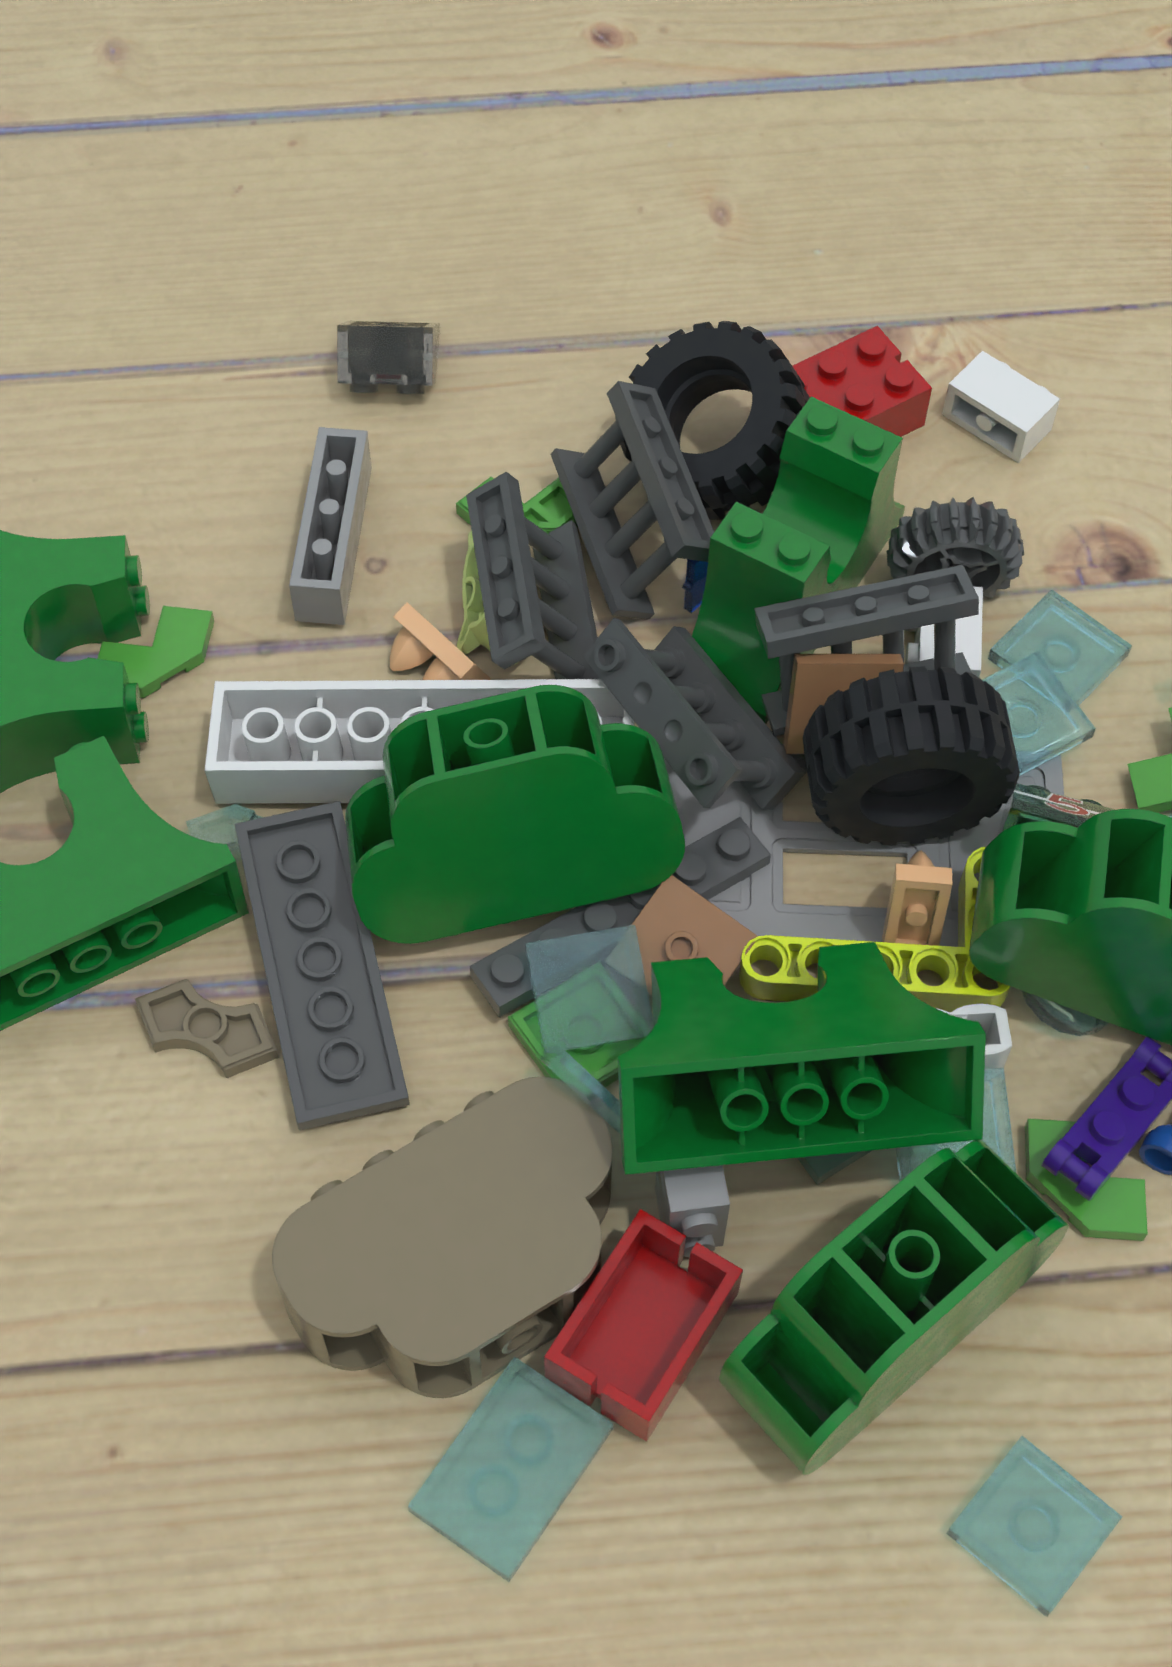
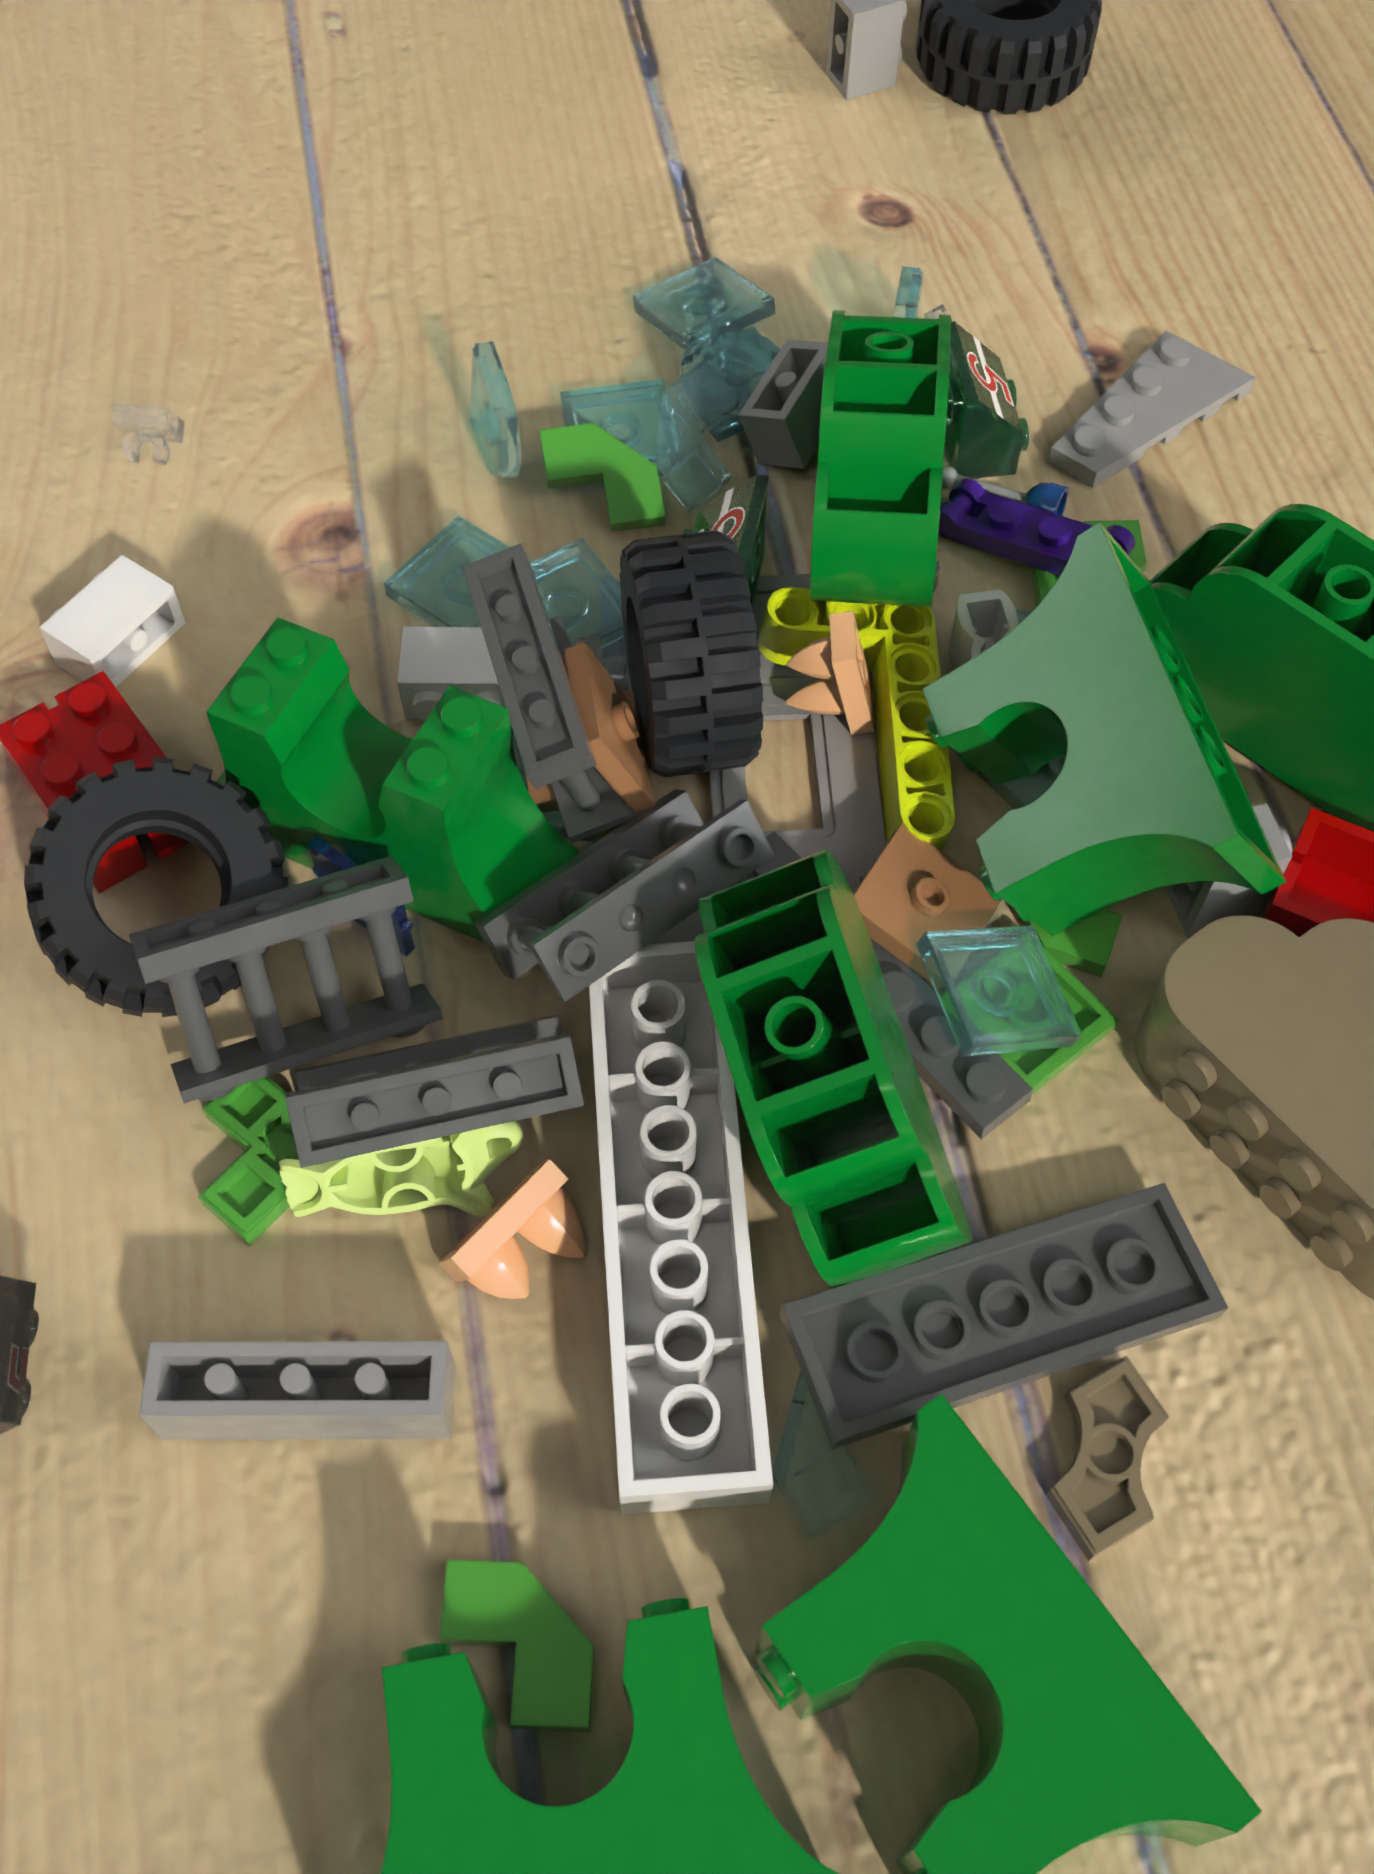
camera: 95 degrees left, 0 degrees up
(583, 1084) = (1144, 964): clear light blue tile -> none
(955, 535) = (354, 615): dark grey gear -> none

